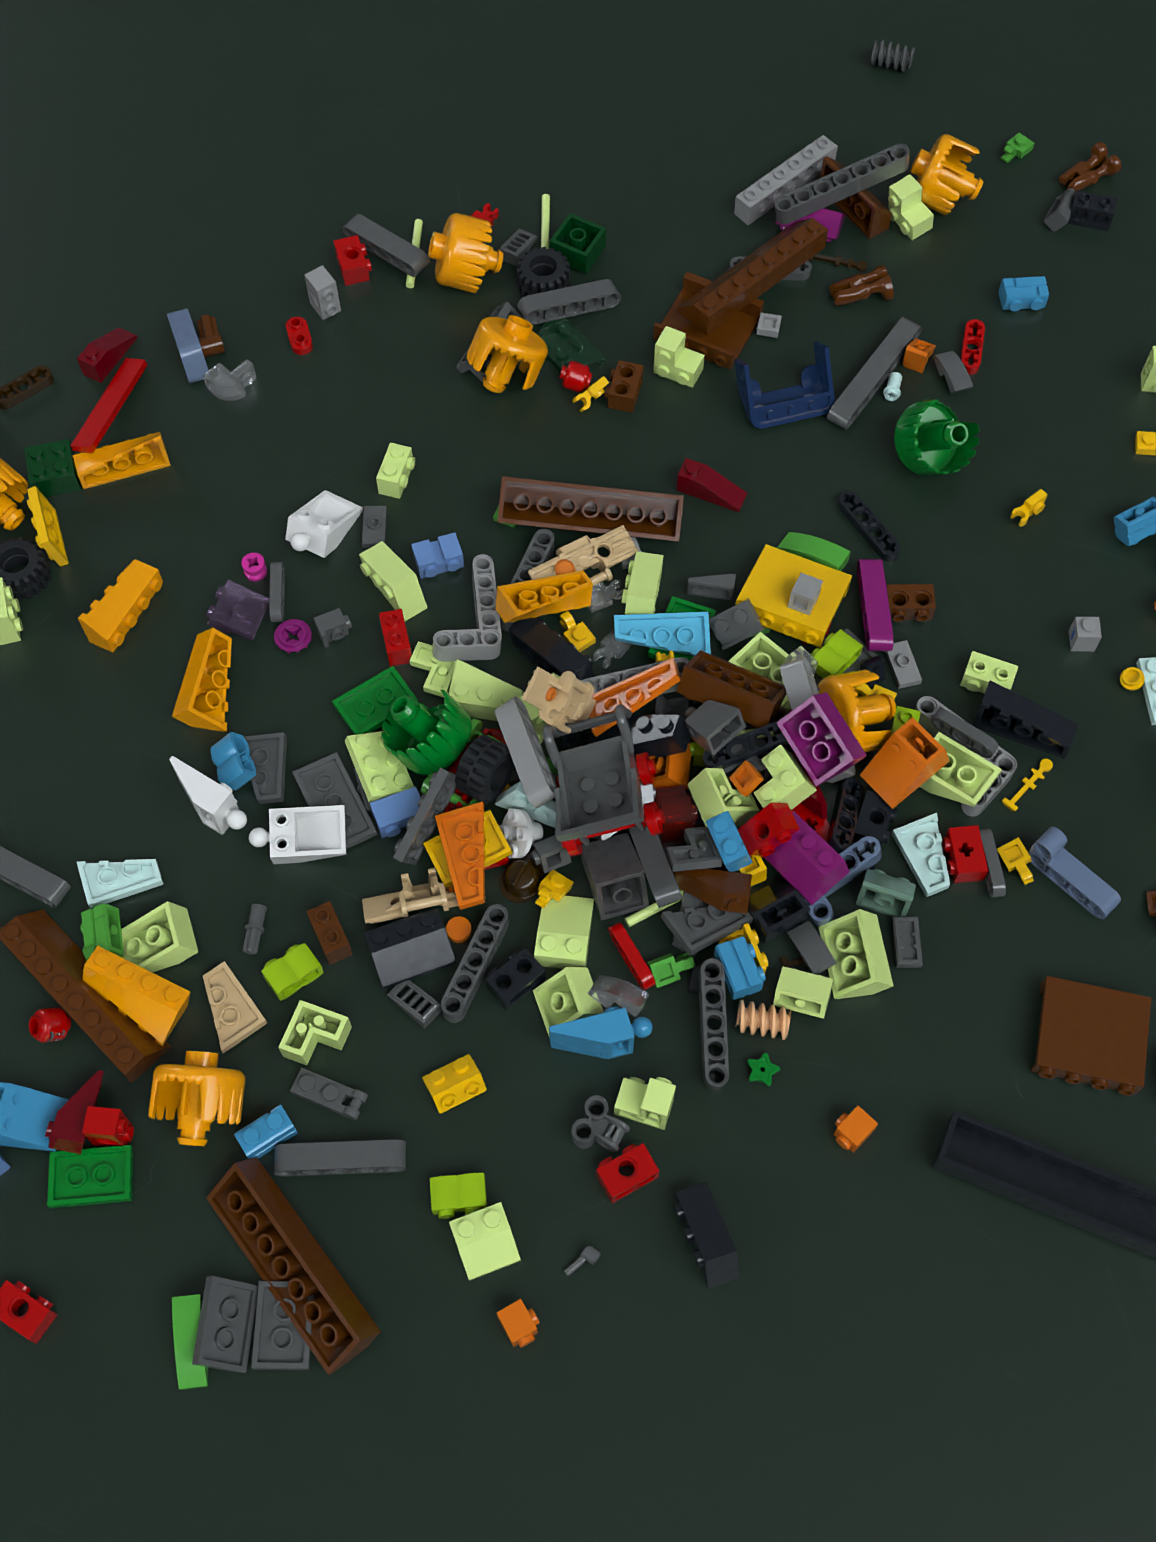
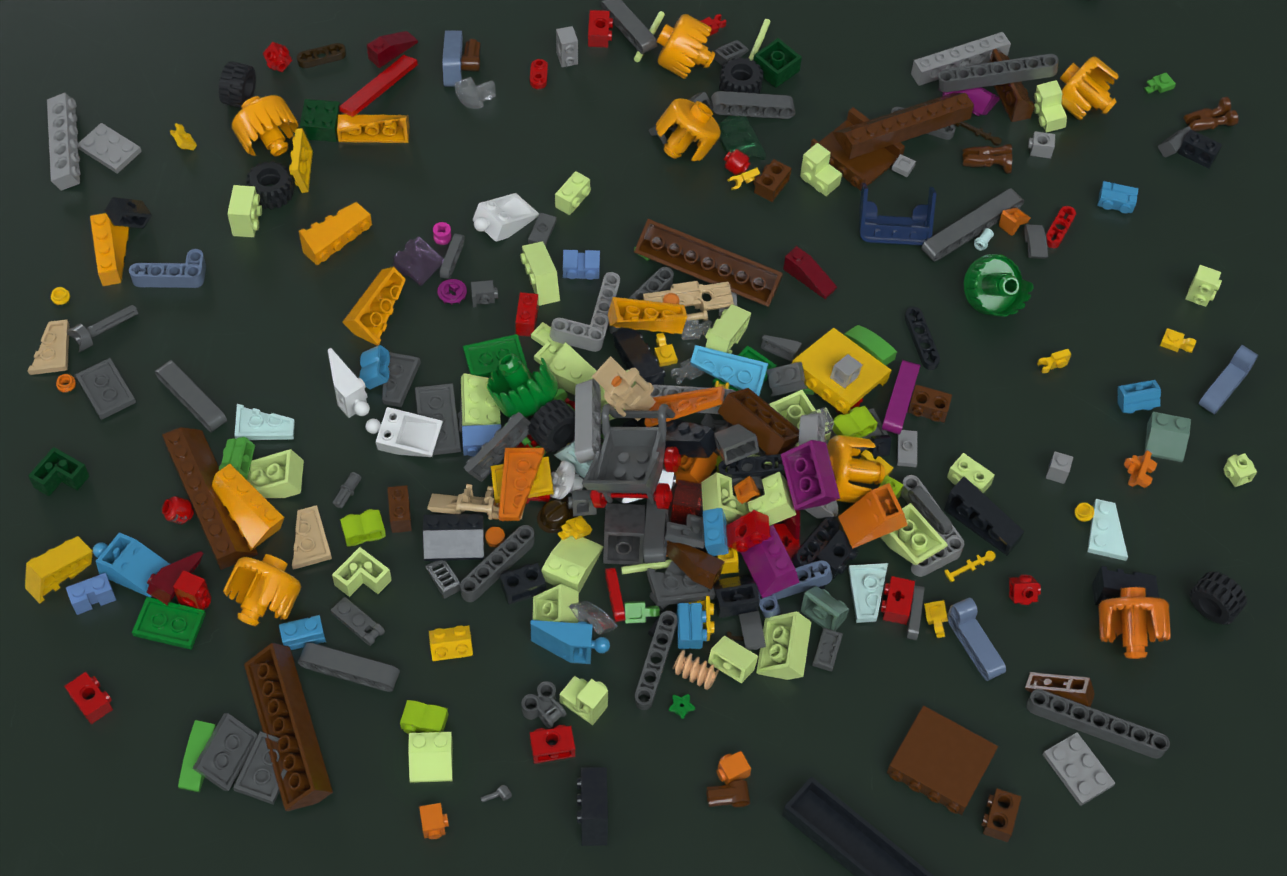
camera: 15 degrees right, 5 degrees down
(866, 1161) = (733, 794): none -> reddish brown piece
(916, 255) = (1042, 144): none -> light grey brick
(1103, 795) = (1024, 589): none -> red brick

